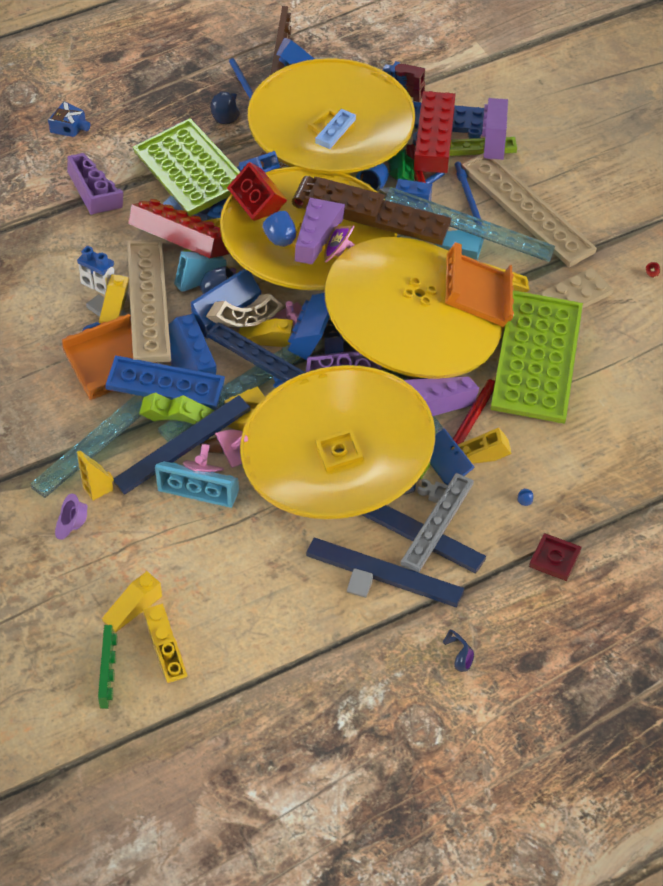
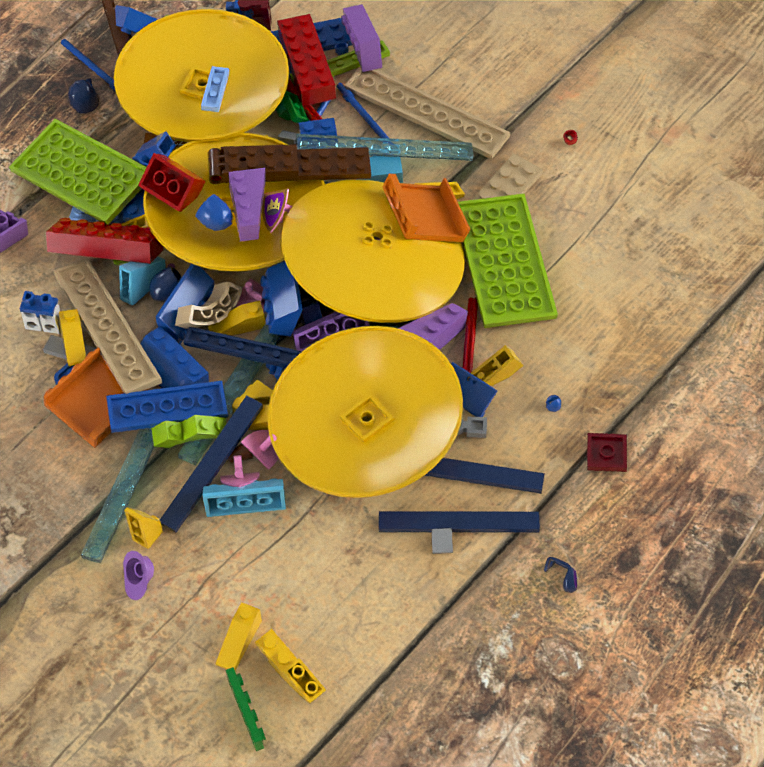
camera: 20 degrees left, 5 degrees up
(375, 176) = (269, 126): piece -> none
(437, 523) = (487, 457): light grey tile -> none

